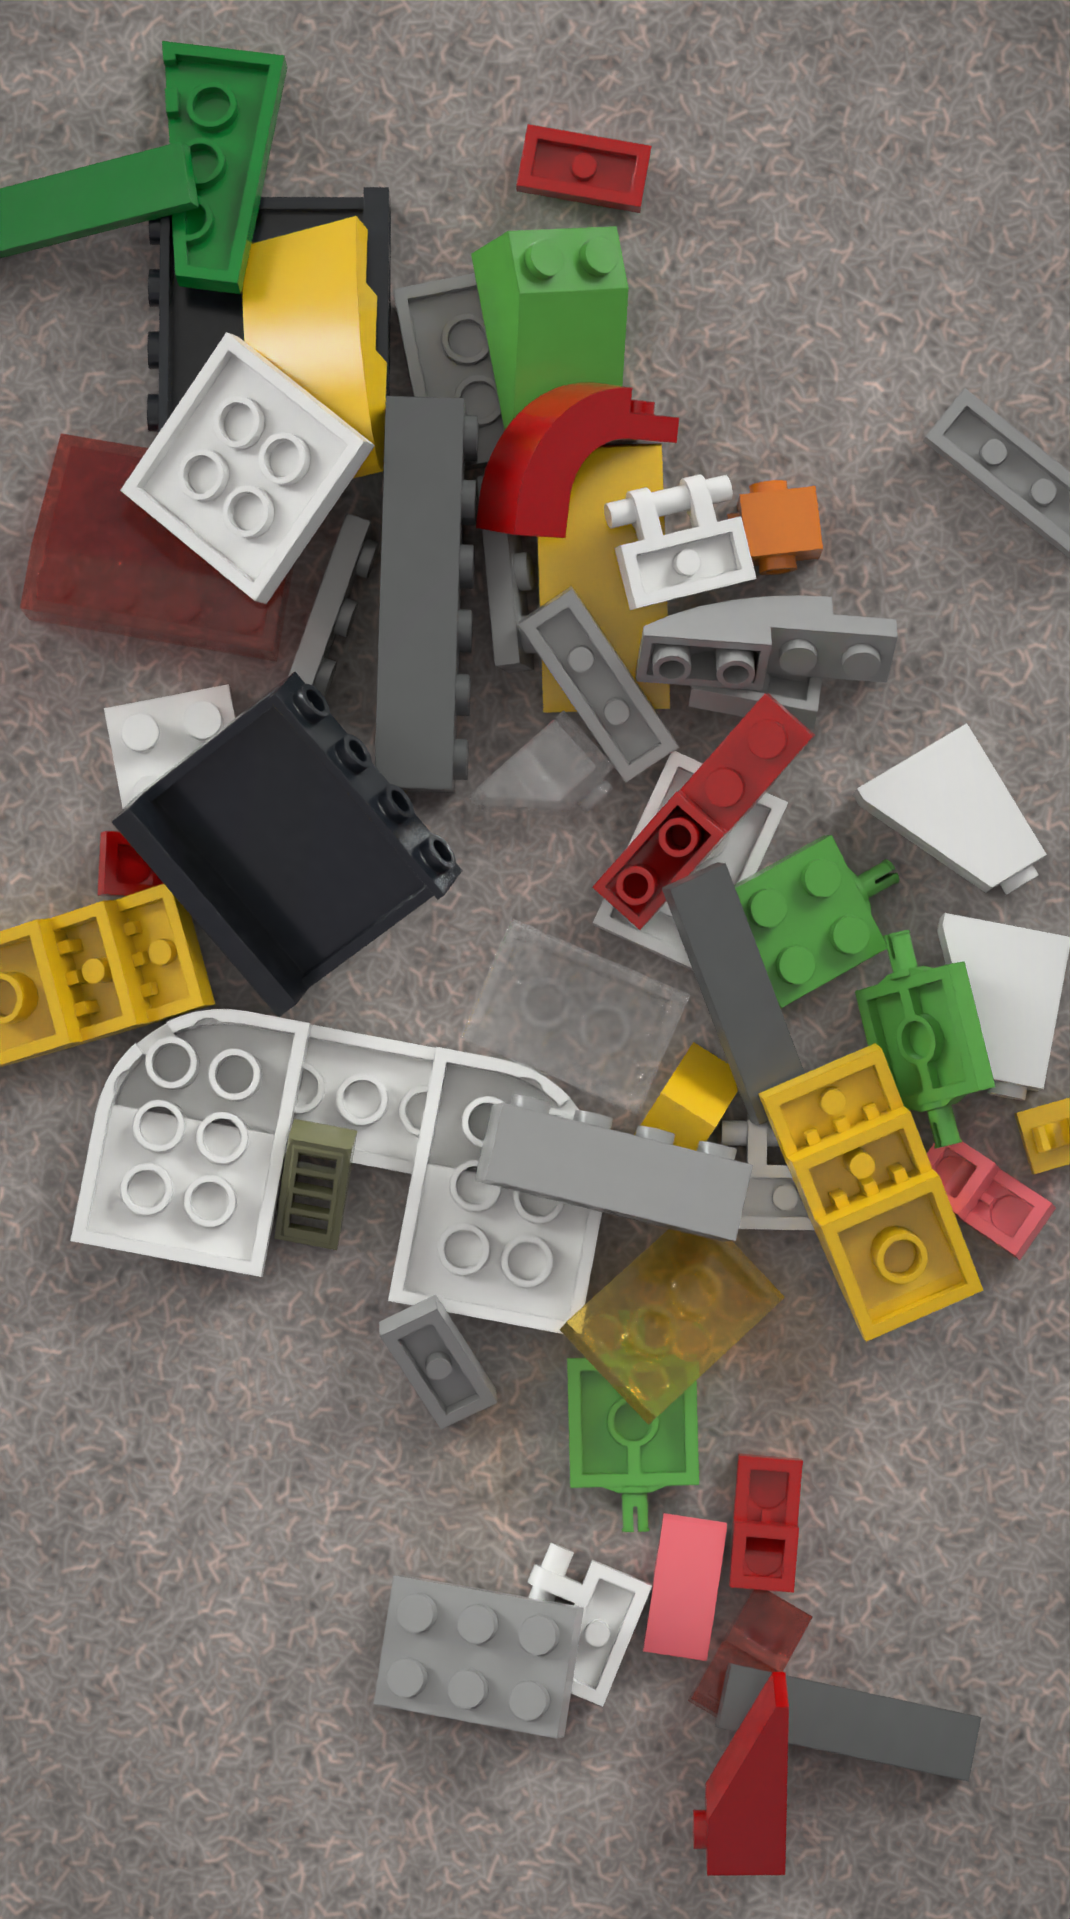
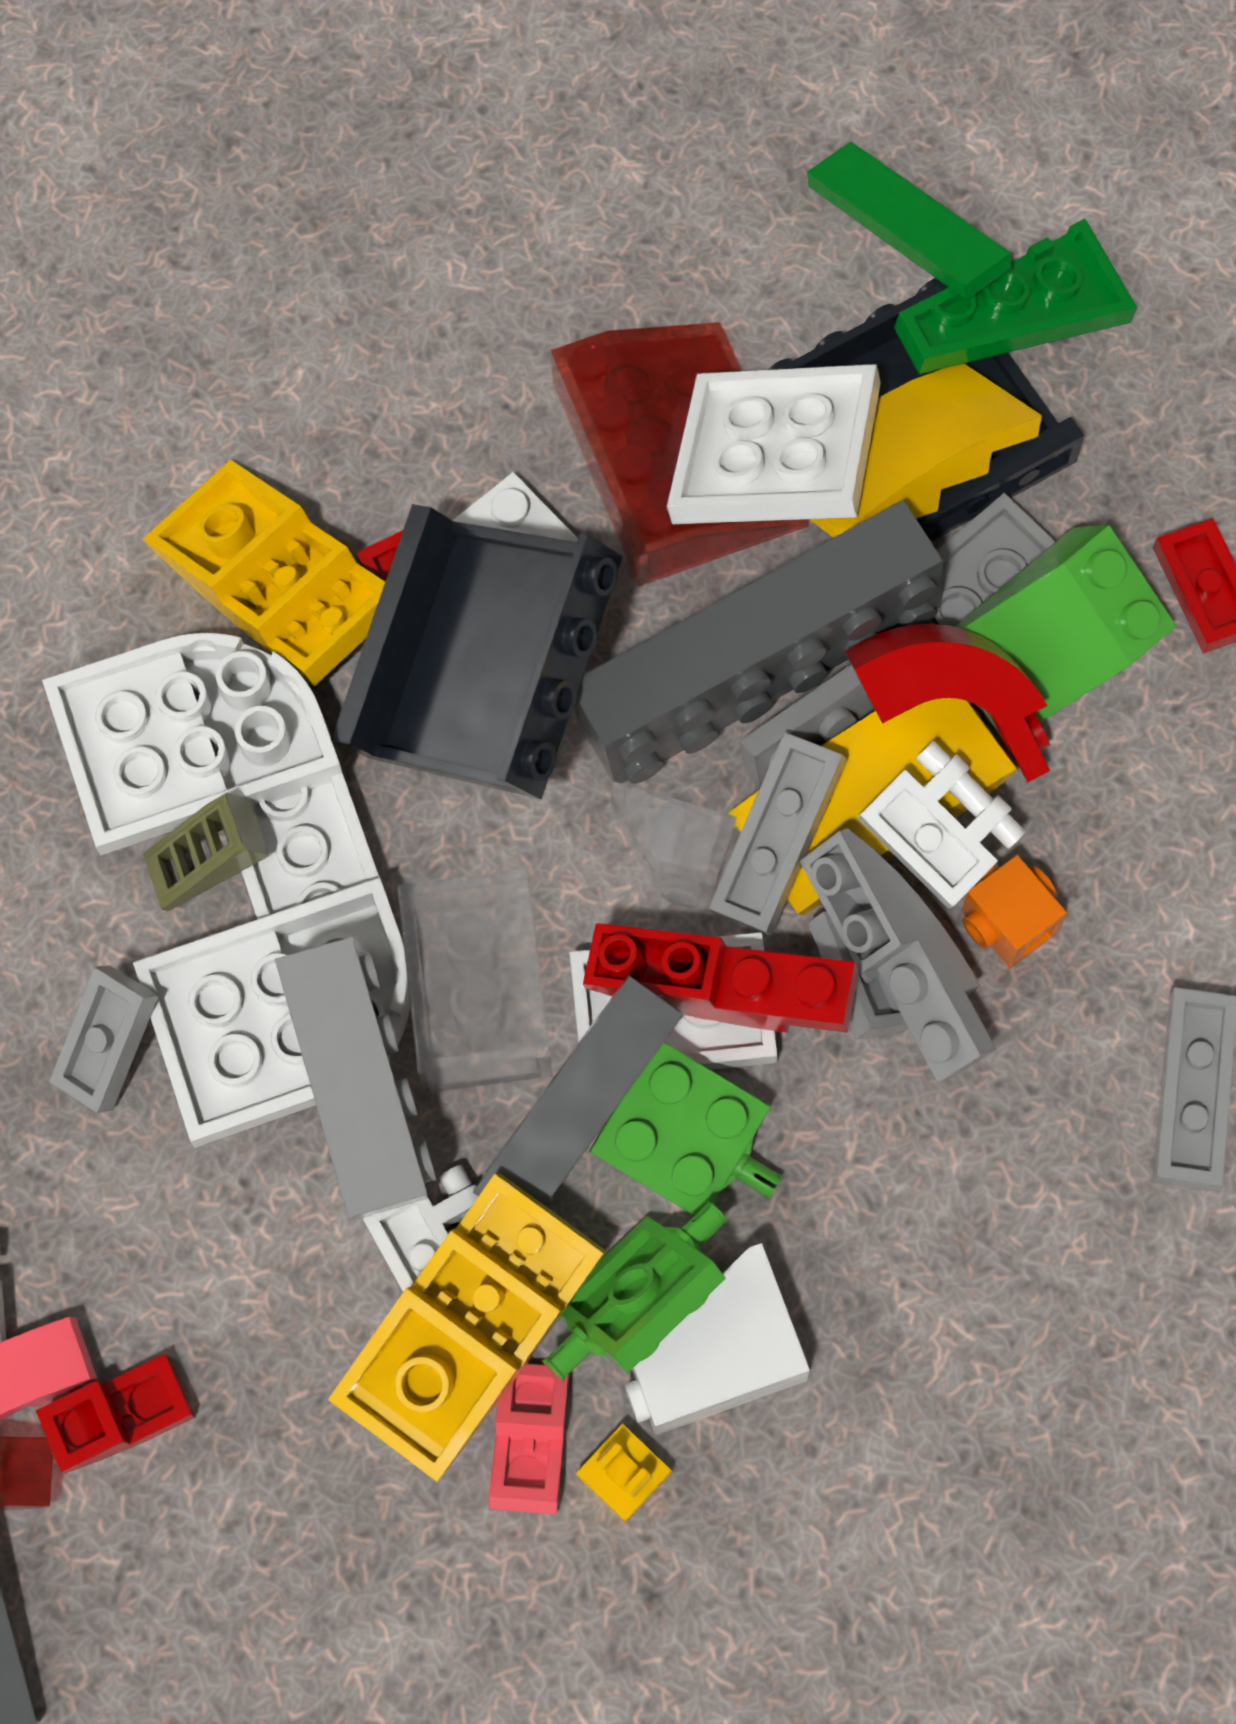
camera: 60 degrees right, 15 degrees down
(332, 609) = (653, 603): light grey plate -> none
(620, 1450) = (144, 1242): bright green plate -> none
(670, 1317) = (253, 1213): clear yellow plate -> none
(693, 1098) = (462, 1125): yellow slope -> none
(957, 812) = (862, 1207): white slope -> none

